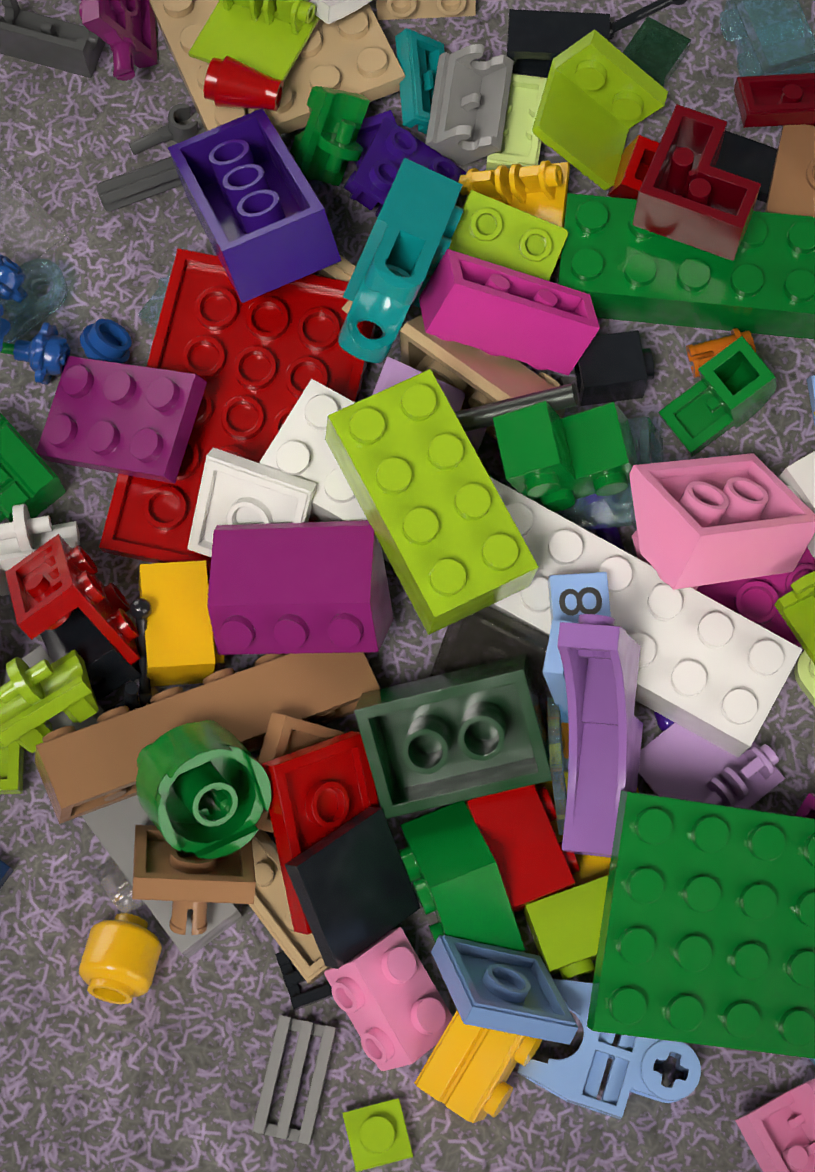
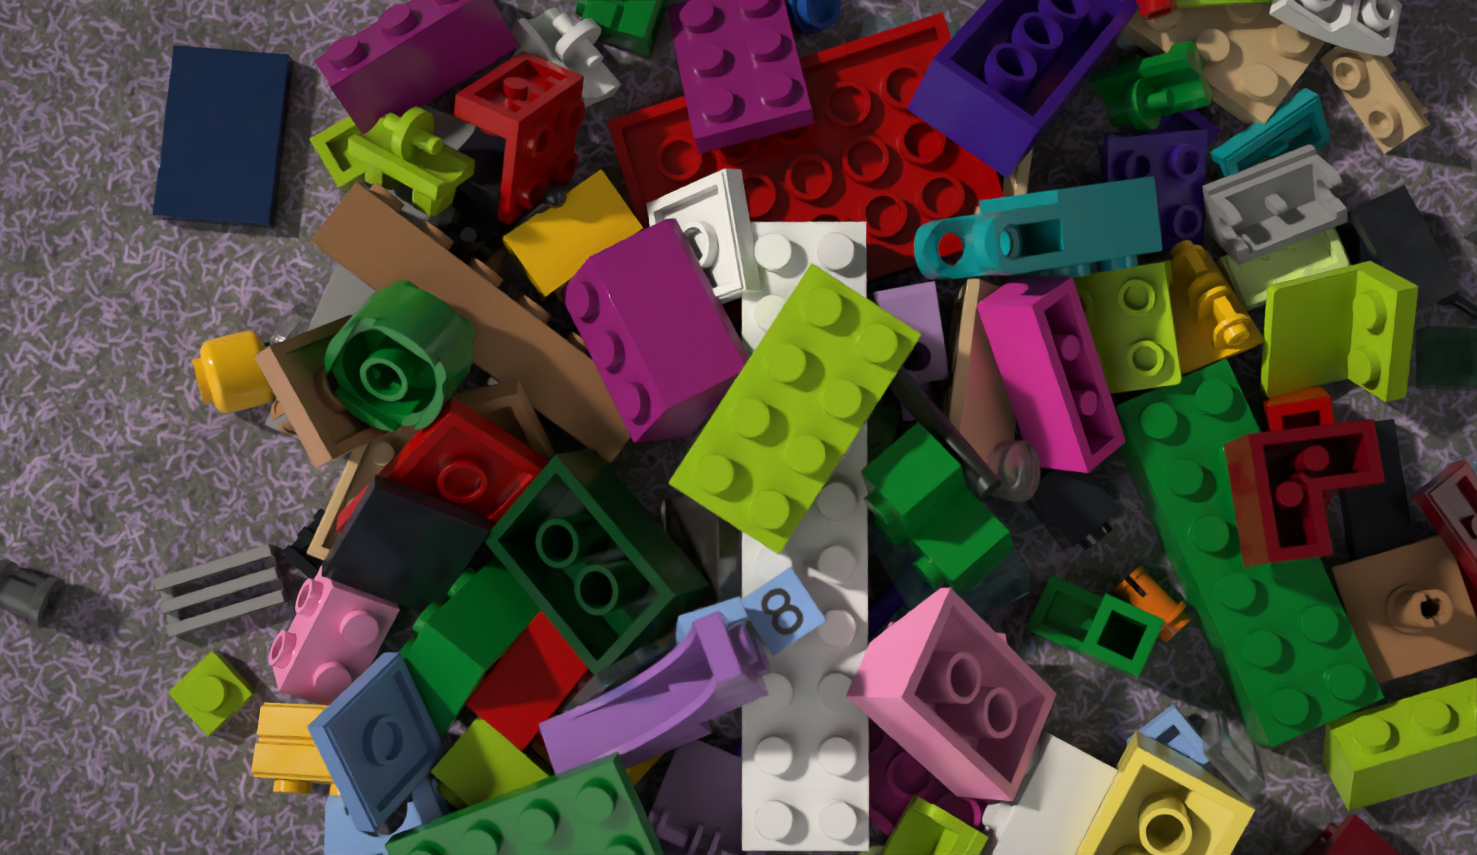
camera: 60 degrees right, 10 degrees up
(560, 374) = (1018, 469): none -> clear tile

